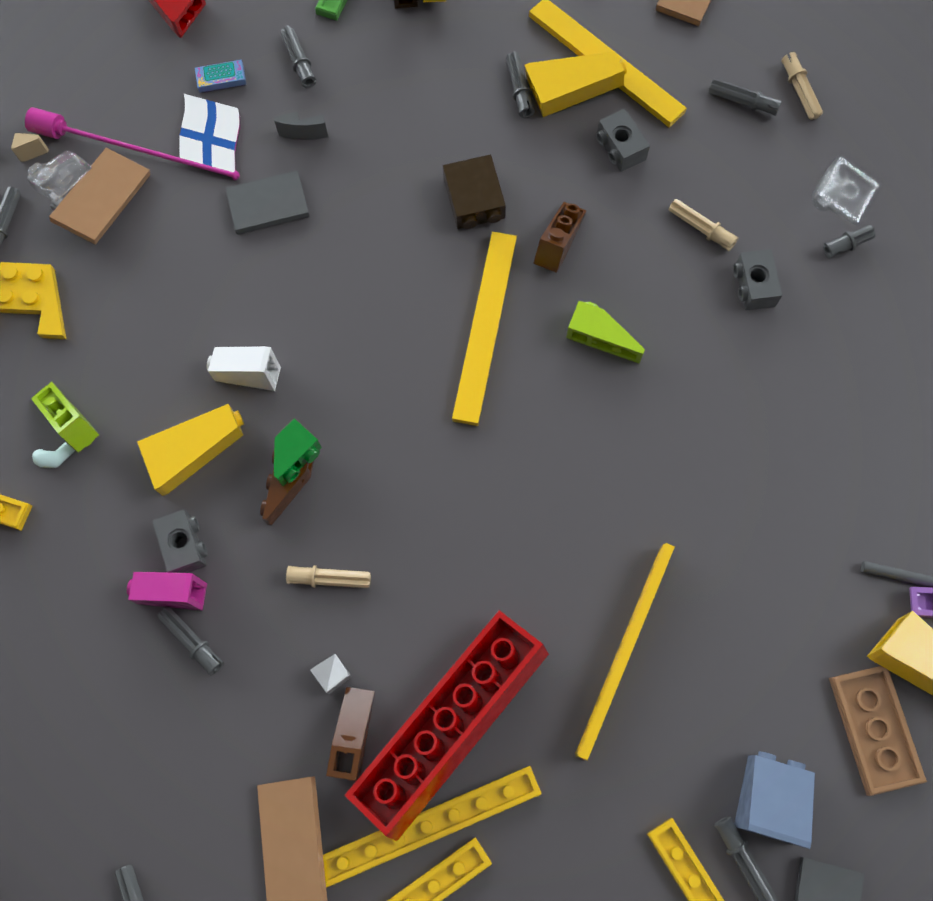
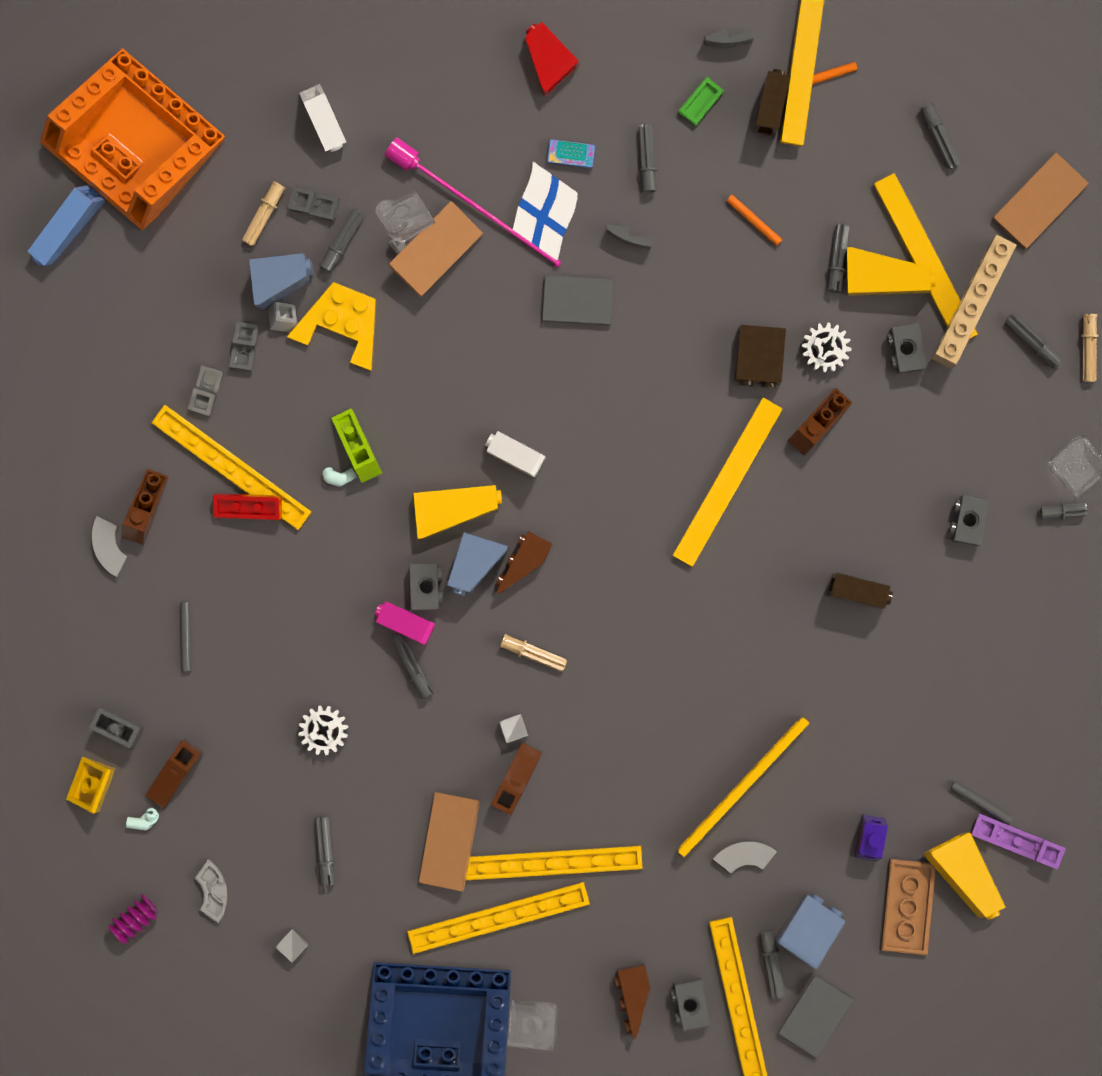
camera: 15 degrees right, 15 degrees up
(28, 146) = (381, 172): tan slope -> none
(85, 754) = (336, 722): none -> white gear
(227, 494) = (474, 562): none -> sand blue slope
(292, 450) = (537, 546): green slope -> none
(423, 78) = (754, 220): none -> orange bar
(446, 726) = (591, 796): red brick -> none
(551, 167) = (816, 343): none -> white gear
(599, 330) = (819, 518): lime slope -> none
(657, 732) = (744, 854): none -> light grey tile
(671, 76) = (973, 301): none -> tan brick
(672, 383) = (860, 591): none -> dark brown brick
(701, 223) = (946, 452): tan axle -> none
(801, 660) = (871, 838): none -> dark purple torso

